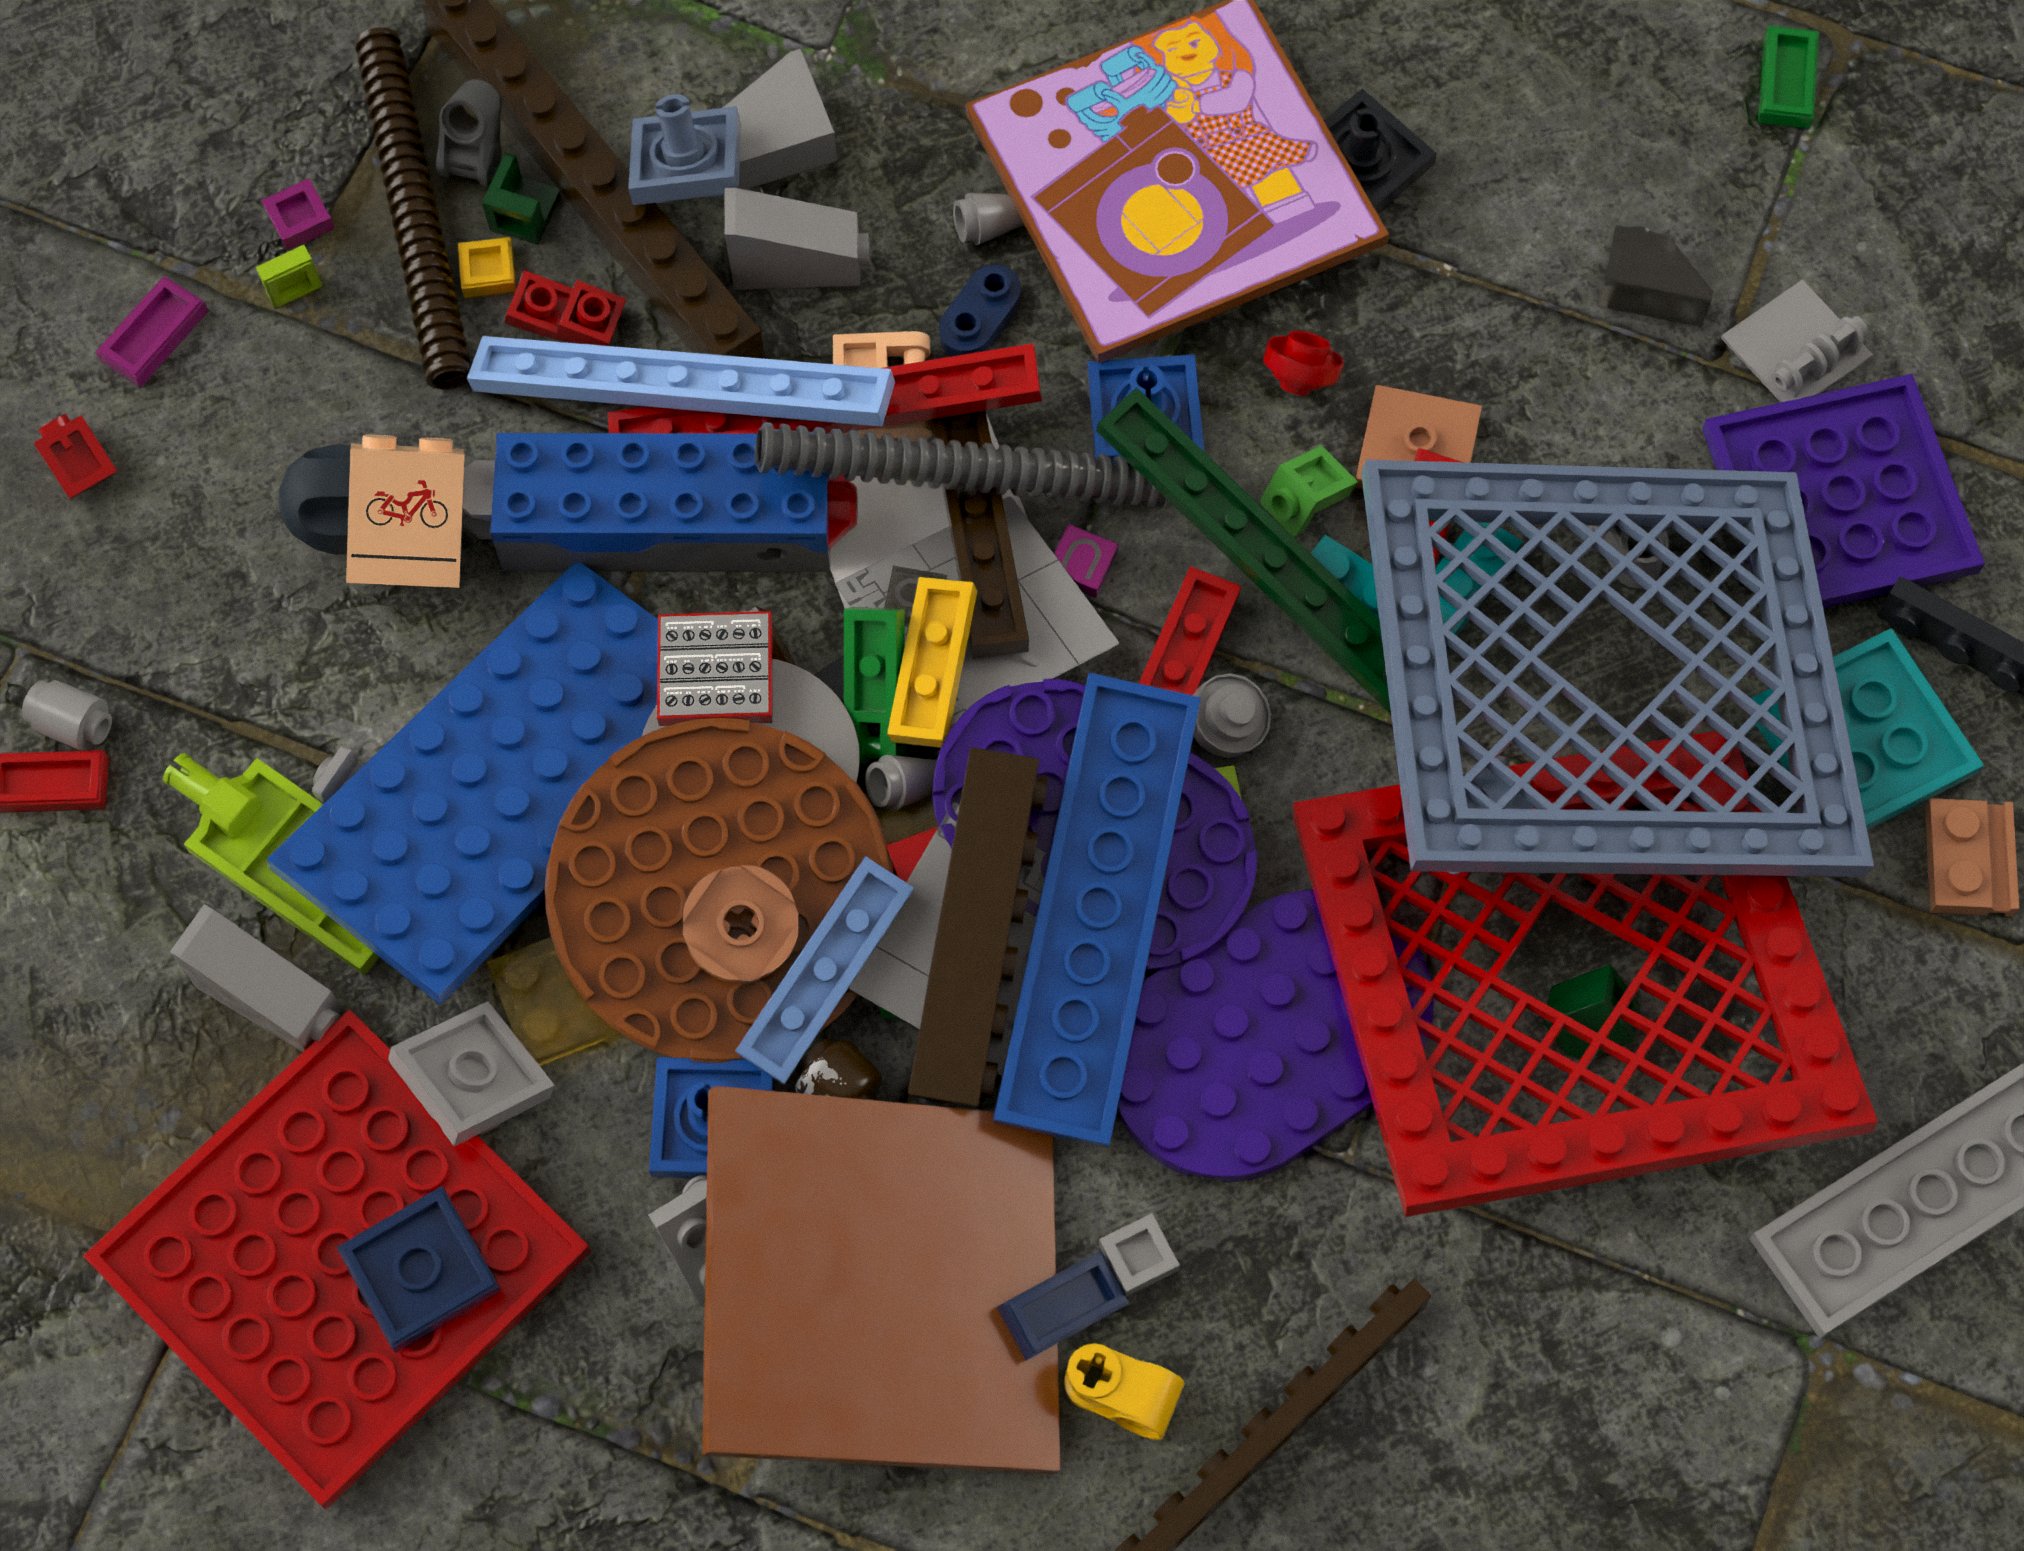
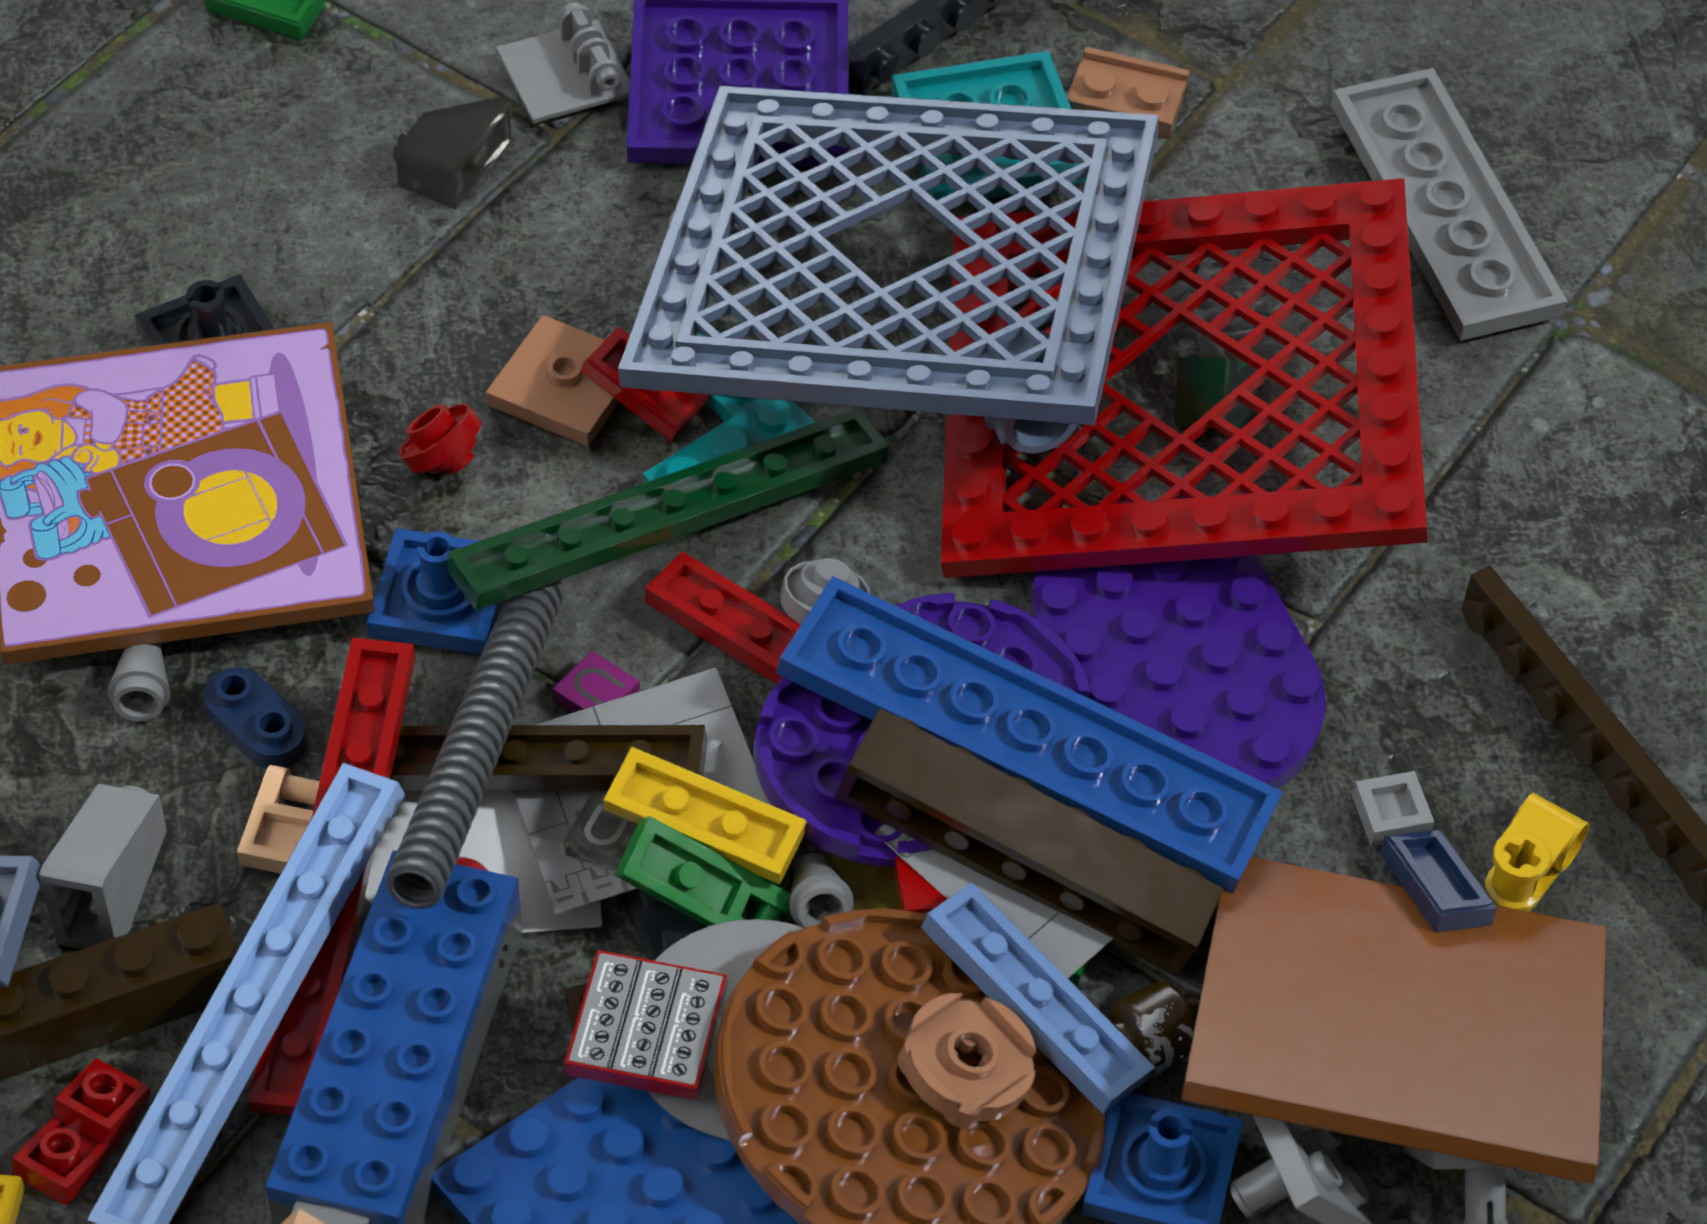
camera: 80 degrees left, 15 degrees down
(1305, 488) = (584, 469): bright green bracket -> none

